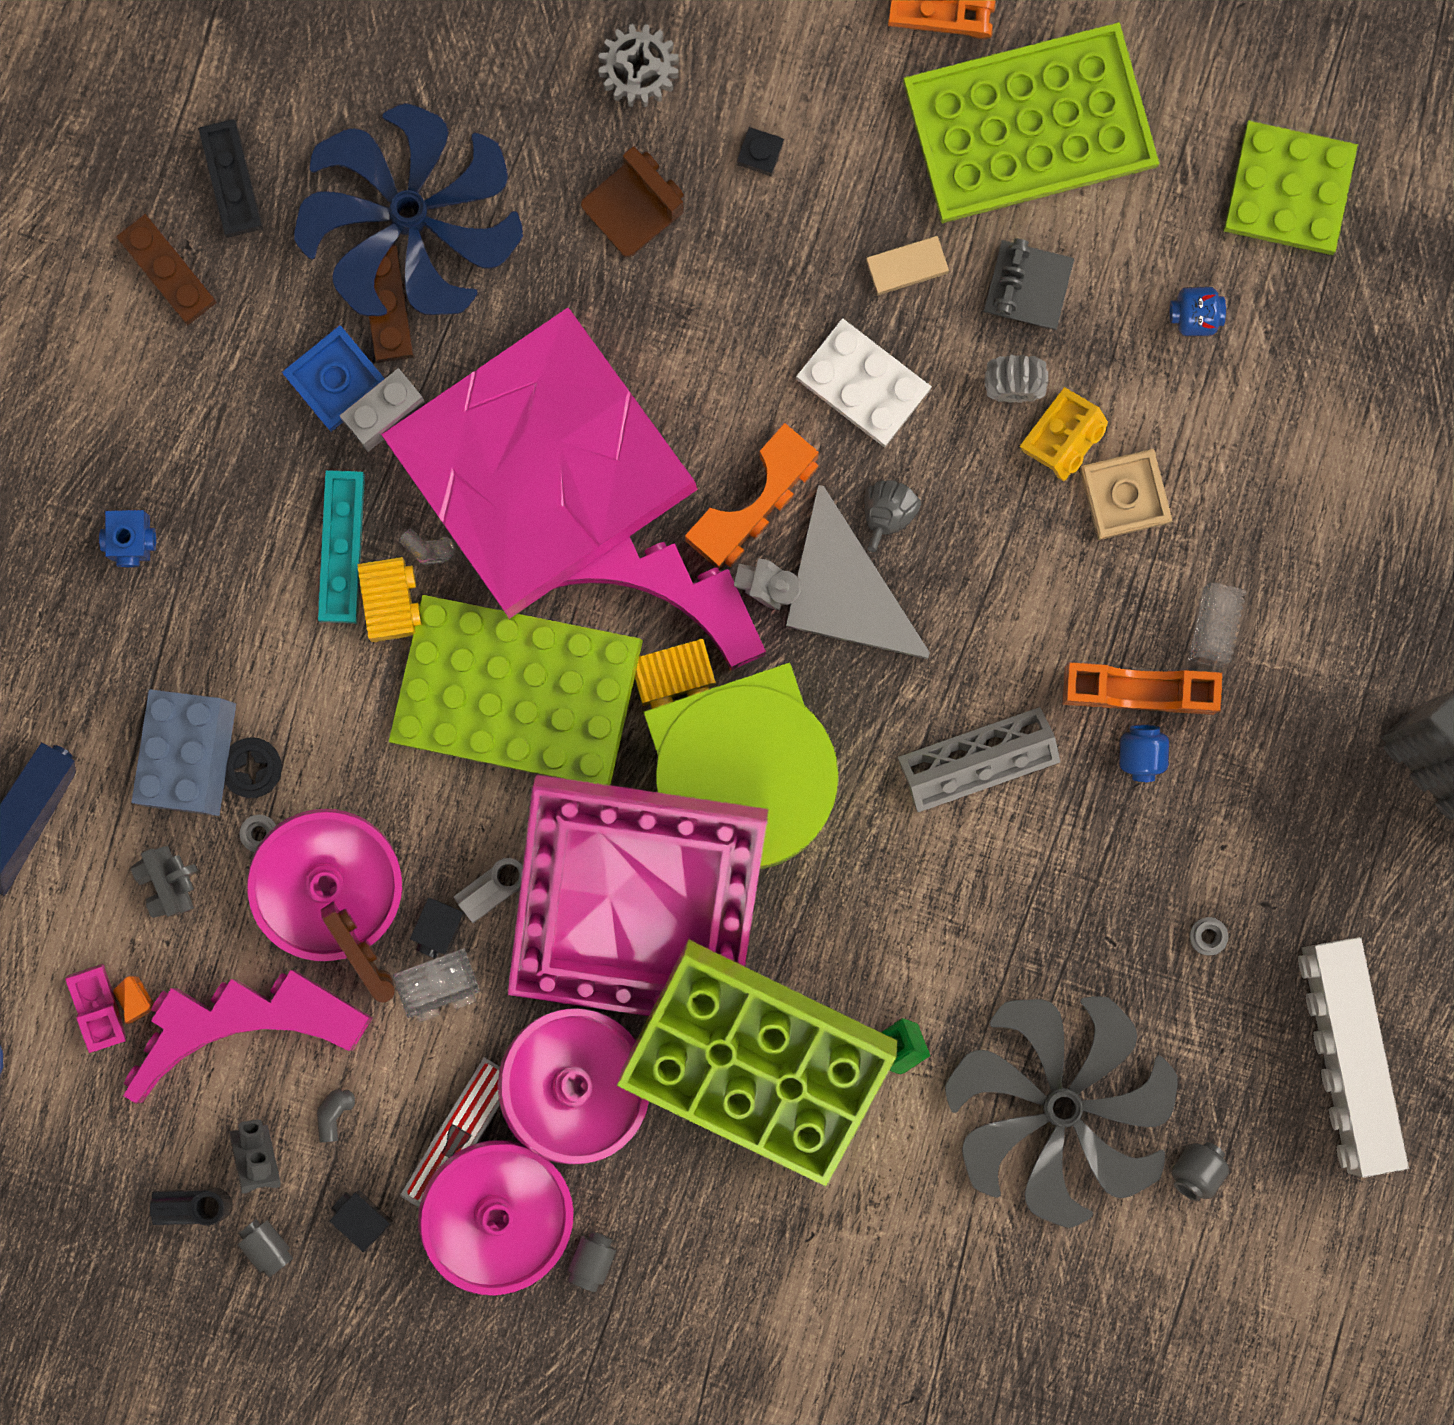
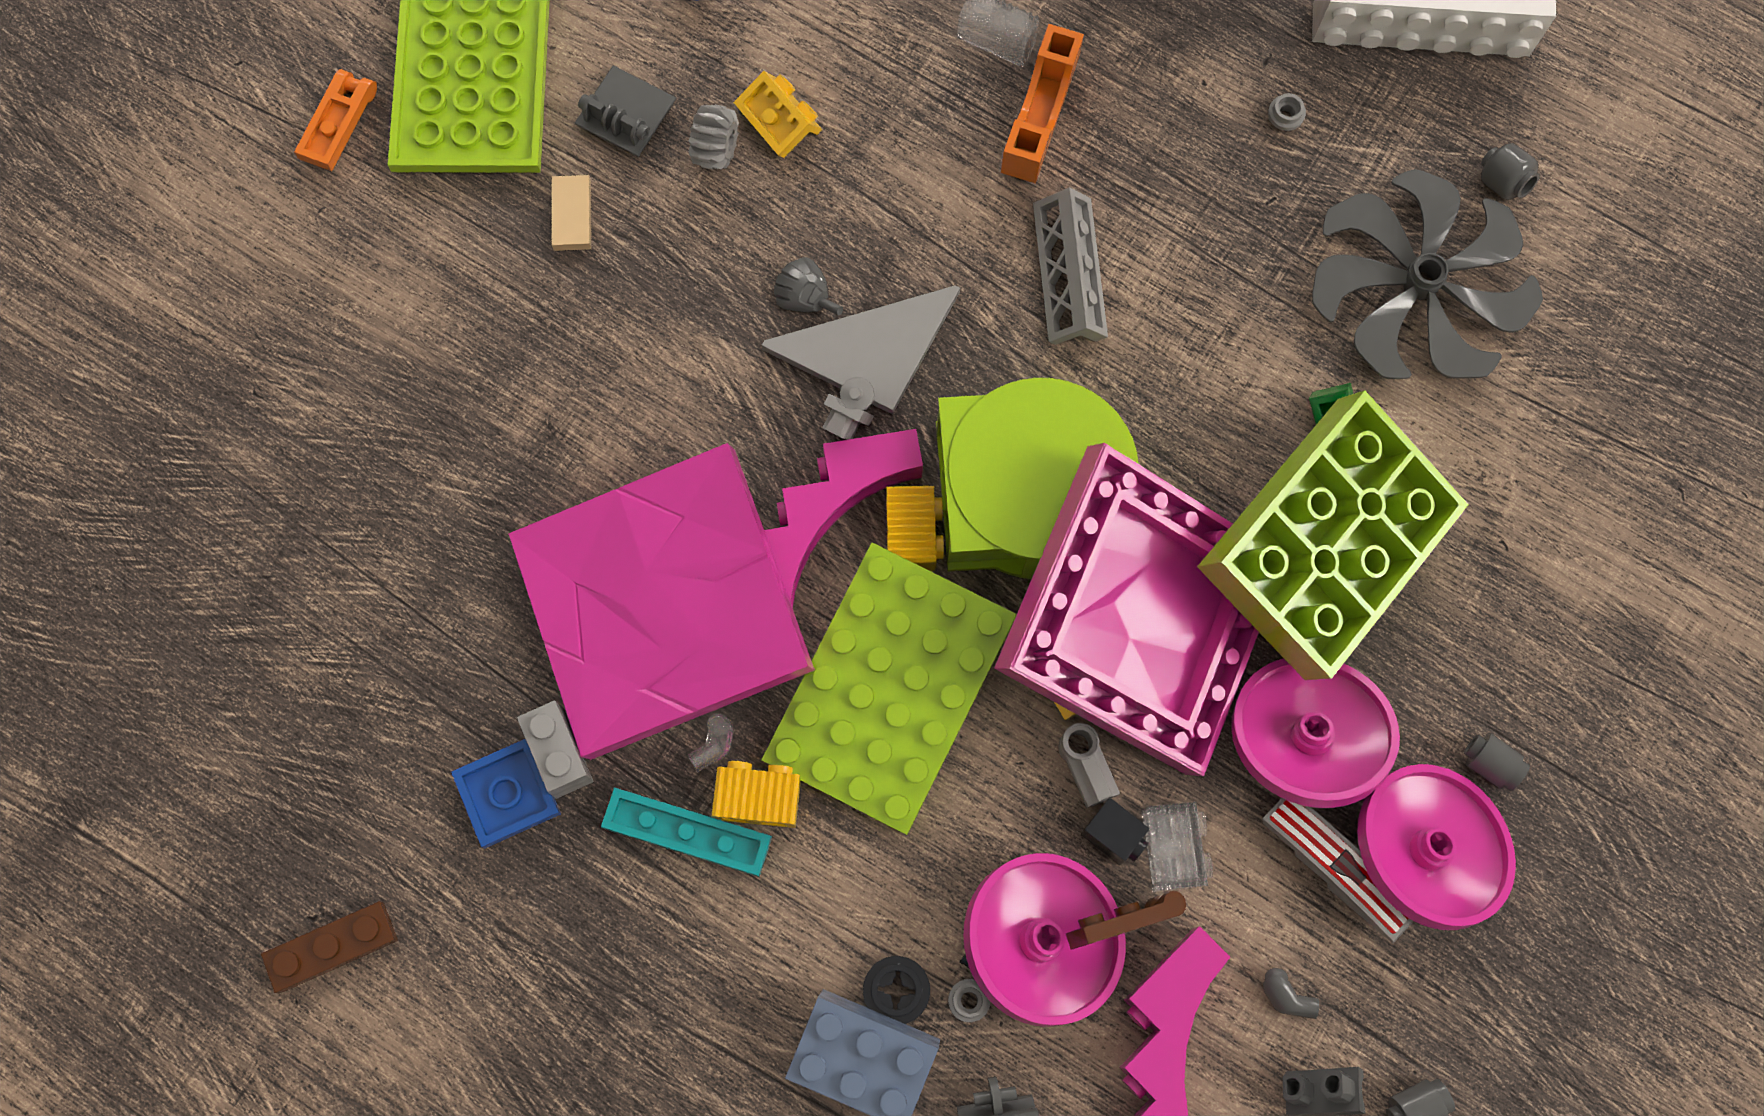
camera: 75 degrees left, 10 degrees down
(120, 526) = (593, 1062): blue brick -> none
(230, 178) = (254, 850): black plate -> none
(358, 268) = (397, 736): dark blue piece -> none
(359, 1219) = (1409, 994): black brick -> none
(391, 331) = (444, 721): reddish brown plate -> none
(625, 60) = (285, 422): light grey gear -> none
(634, 203) = (422, 444): reddish brown bracket -> none
(721, 533) = (730, 370): orange arch -> none
(760, 151) = (413, 317): black plate -> none
(863, 382) = (673, 281): white plate -> none
(1126, 494) = (850, 79): tan tile -> none
(1144, 752) = (1101, 120): blue head -> none

